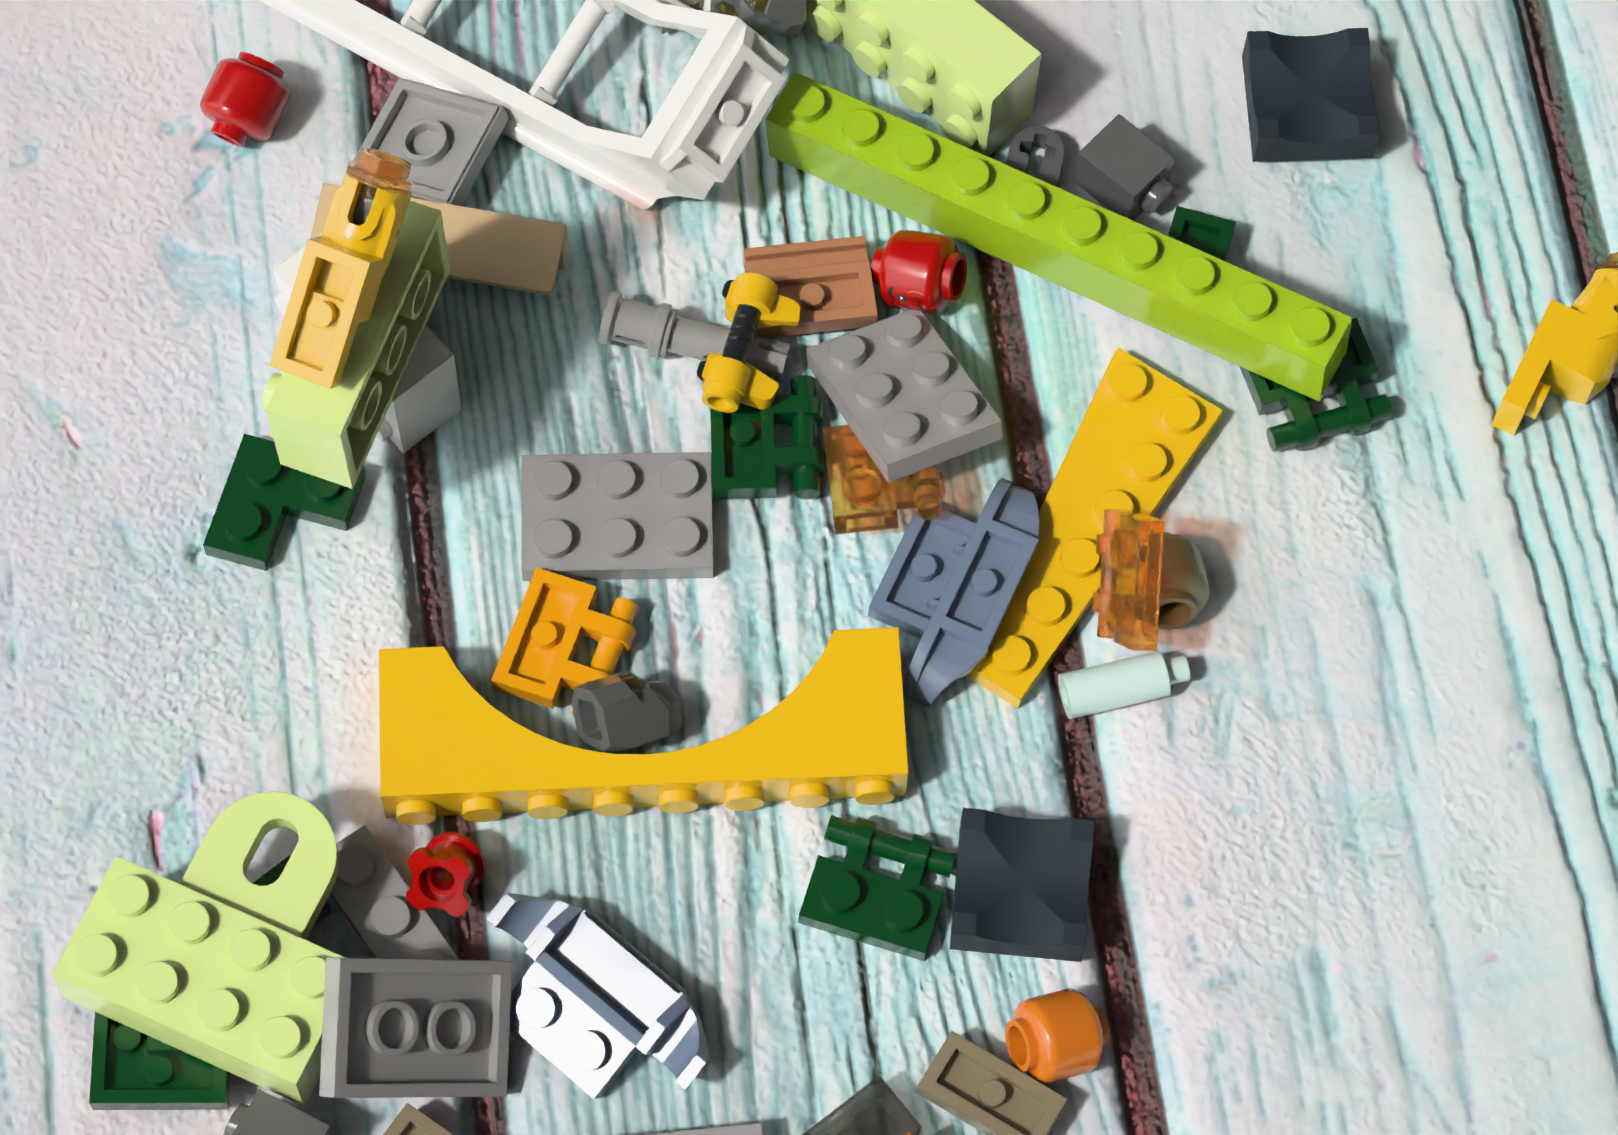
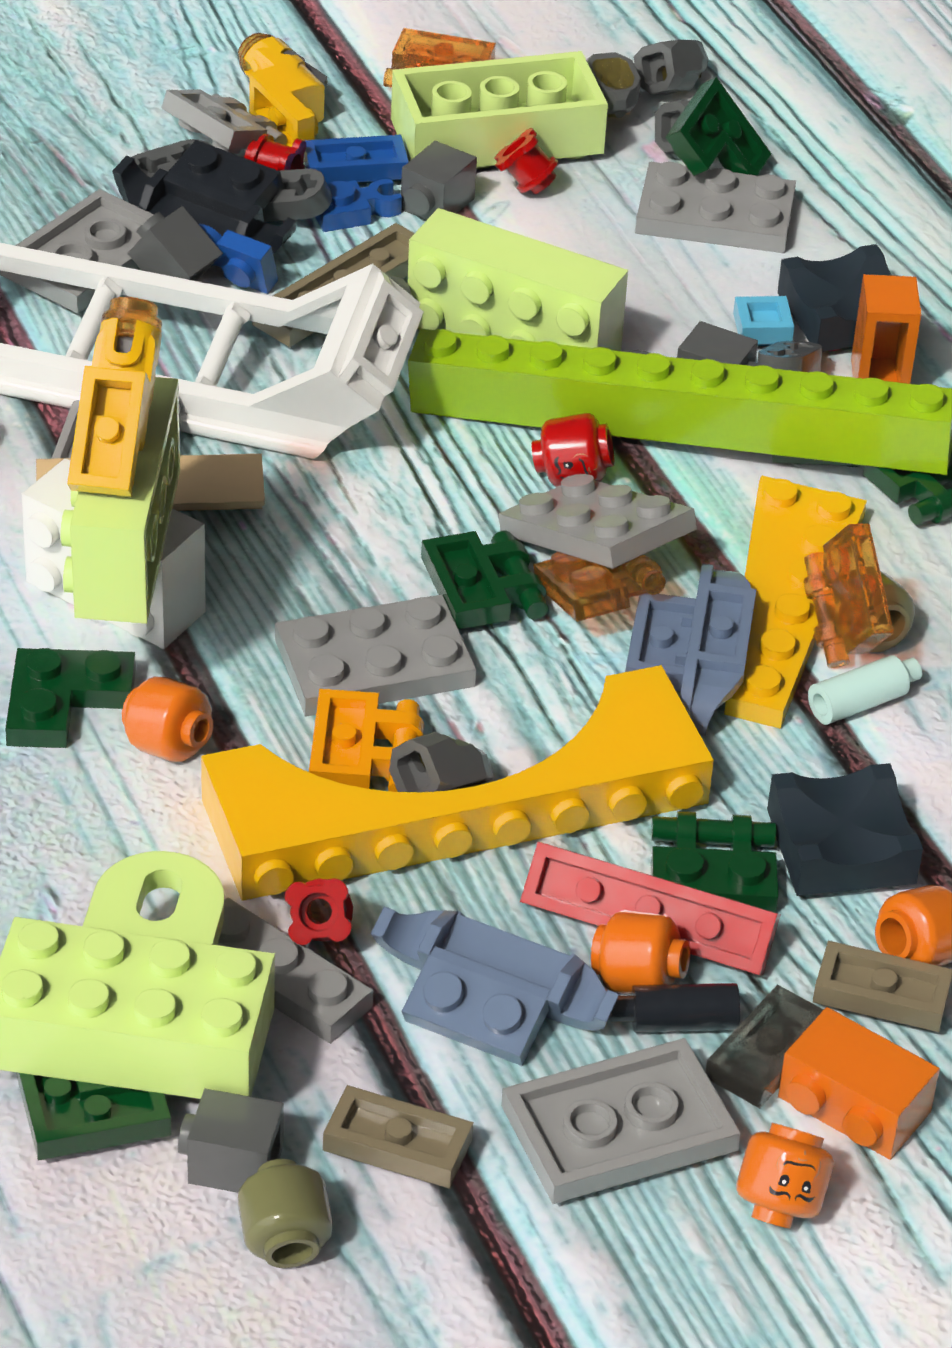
camera: 15 degrees left, 25 degrees down
(367, 572) = (167, 718): none -> orange head
(415, 1028) = (341, 1004): light grey plate -> none
(665, 332) = (369, 523): light grey pin -> none
(727, 377) = (443, 527): yellow piece -> none
(753, 1000) = (639, 951): none -> orange head
(774, 1073) = (680, 1007): none -> black cylinder
(786, 941) = (597, 889): none -> plate
(826, 280) = (481, 477): nougat plate -> none
(1205, 104) = (764, 318): none -> medium azure plate
(1206, 186) = (792, 356): none -> dark grey beam
(1323, 181) = (886, 328): none -> orange piece

